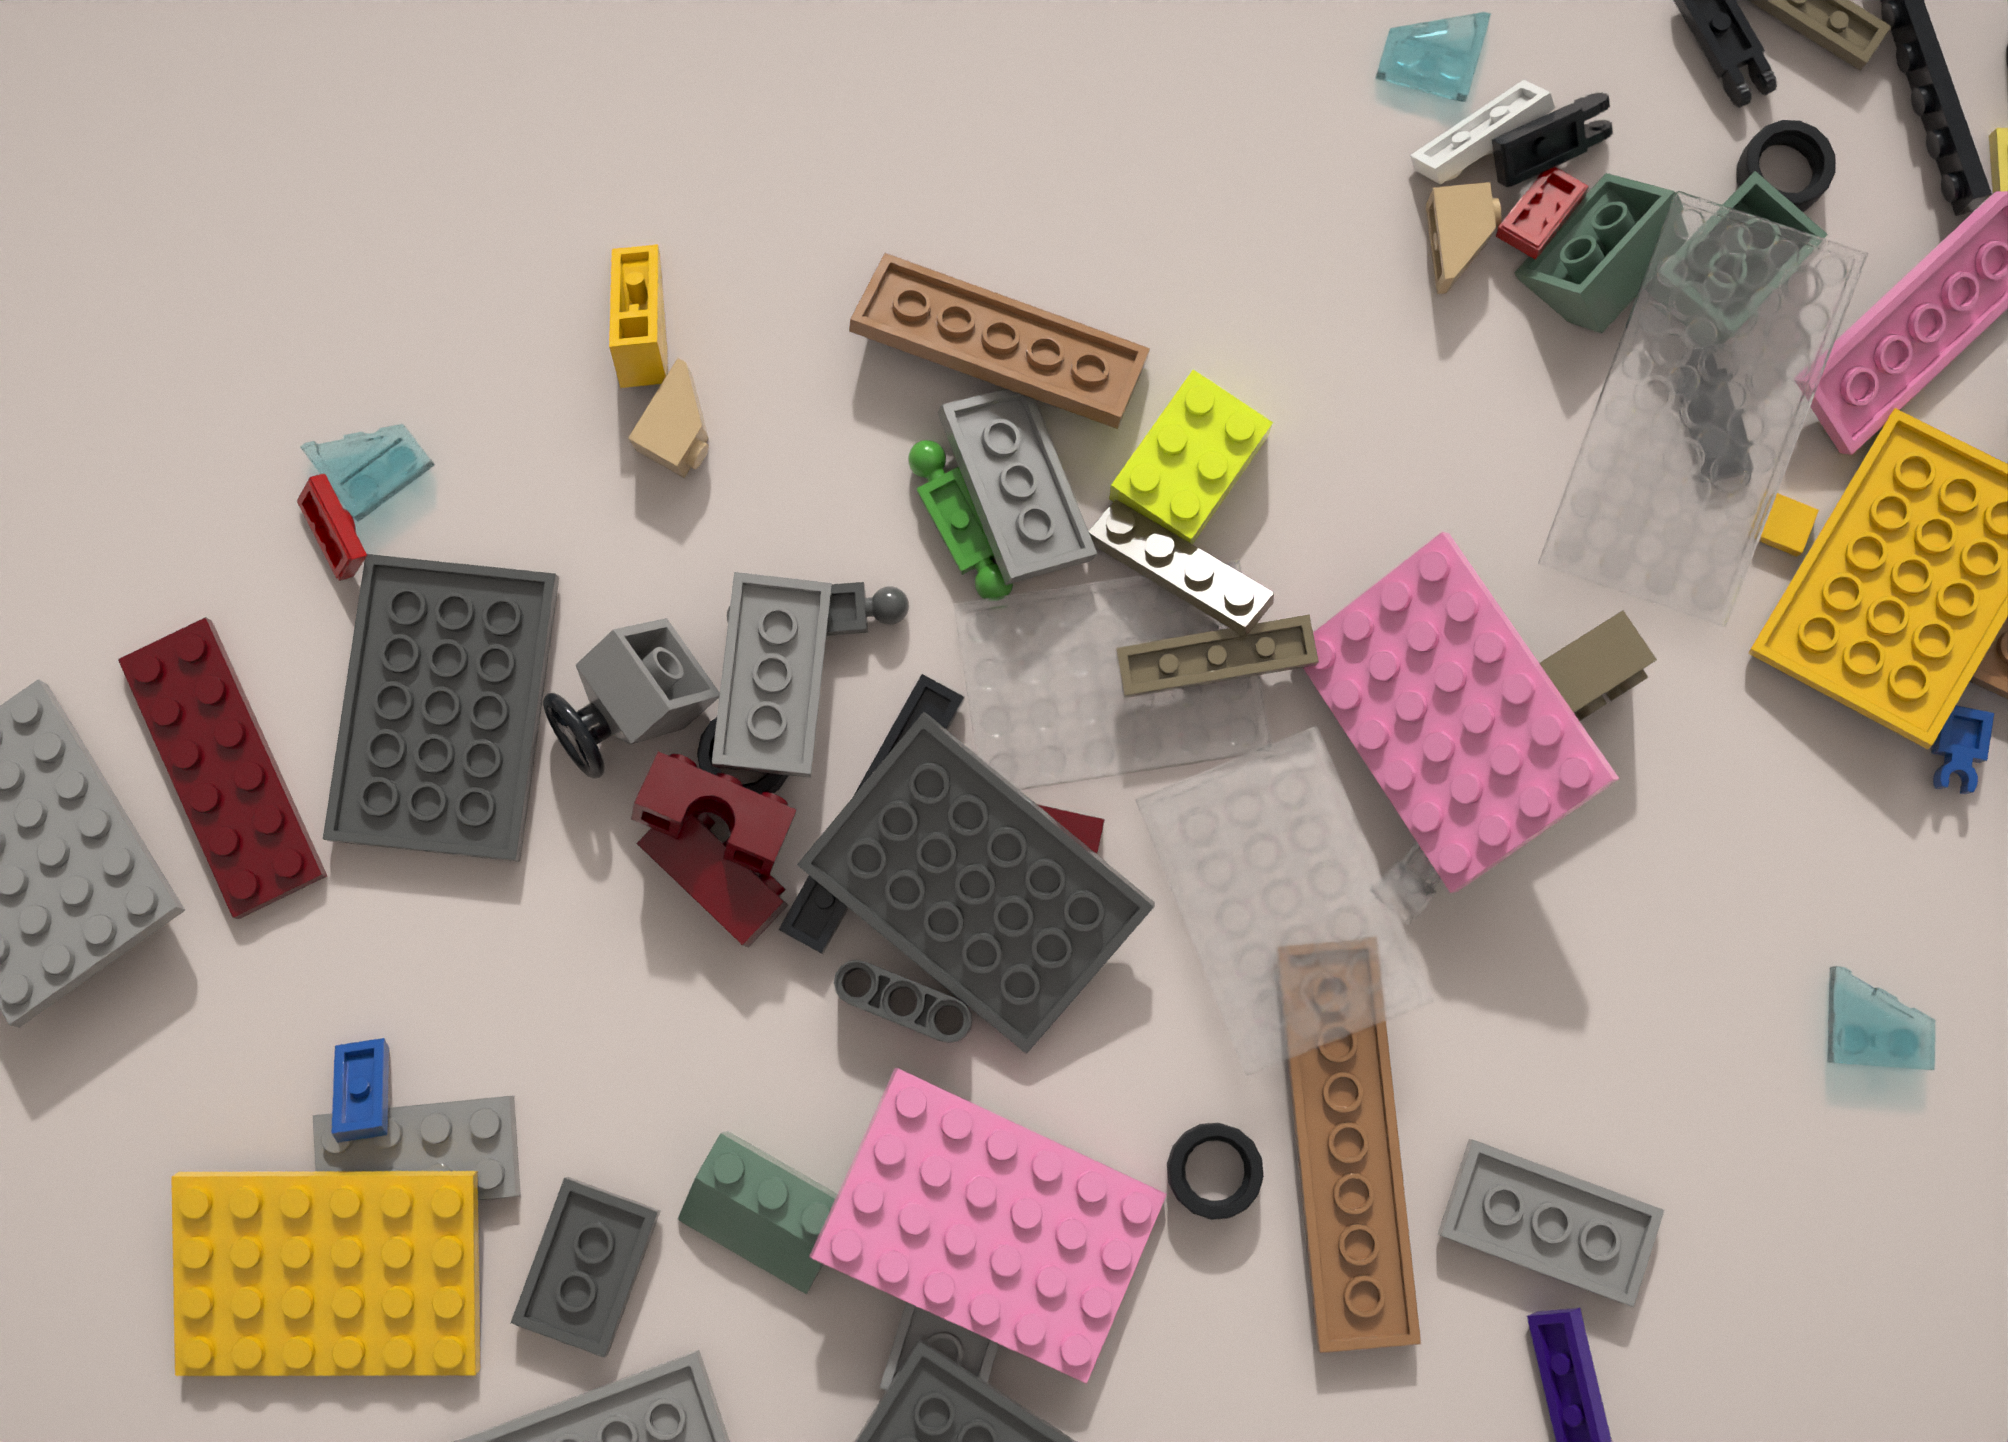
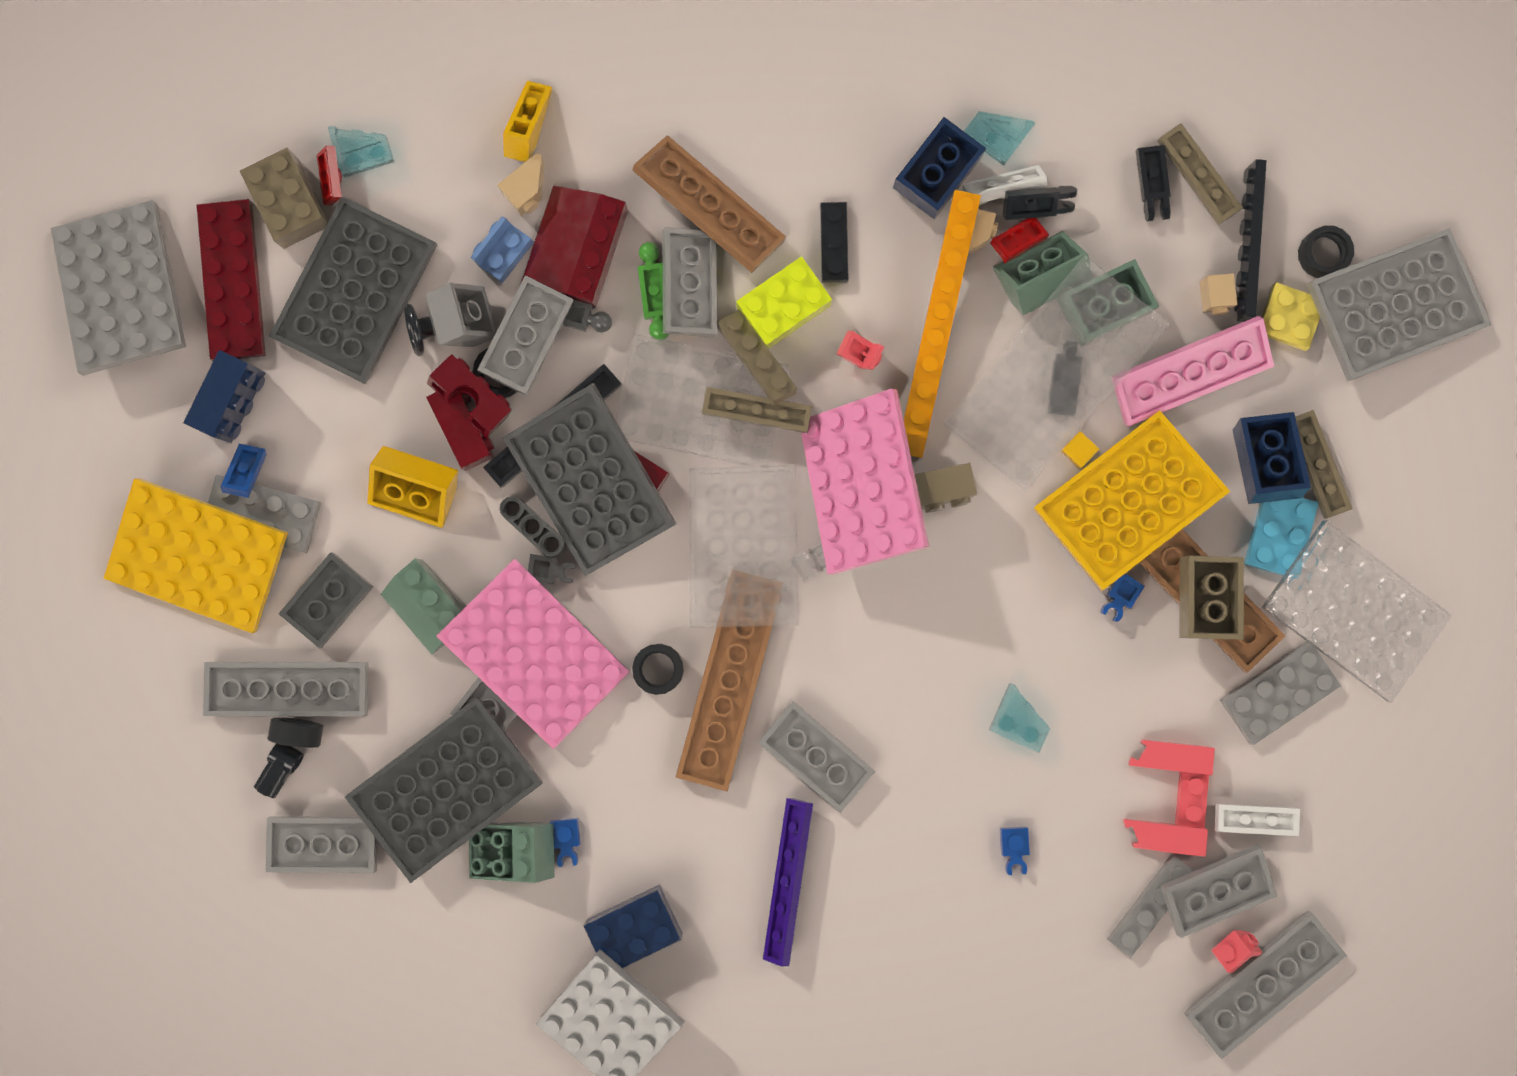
camera: 15 degrees right, 5 degrees up
(268, 593) = (284, 198): none -> dark tan brick
(285, 973) = (225, 397): none -> dark blue brick
(665, 1008) = (411, 486): none -> yellow slope
(673, 545) = (501, 249): none -> medium blue bracket
(796, 487) = (576, 242): none -> dark red slope
(953, 1068) = (545, 569): none -> dark grey plate
(1232, 329) = (834, 242): none -> black plate
(1351, 494) = (860, 351): none -> coral bracket
(1364, 142) = (939, 167): none -> dark blue brick
(1464, 381) = (939, 319): none -> light orange plate
(1808, 142) = (1171, 249): black tyre -> none
(1910, 181) = (1218, 293): none -> tan brick
(1957, 1249) = (1015, 845): none -> blue plate

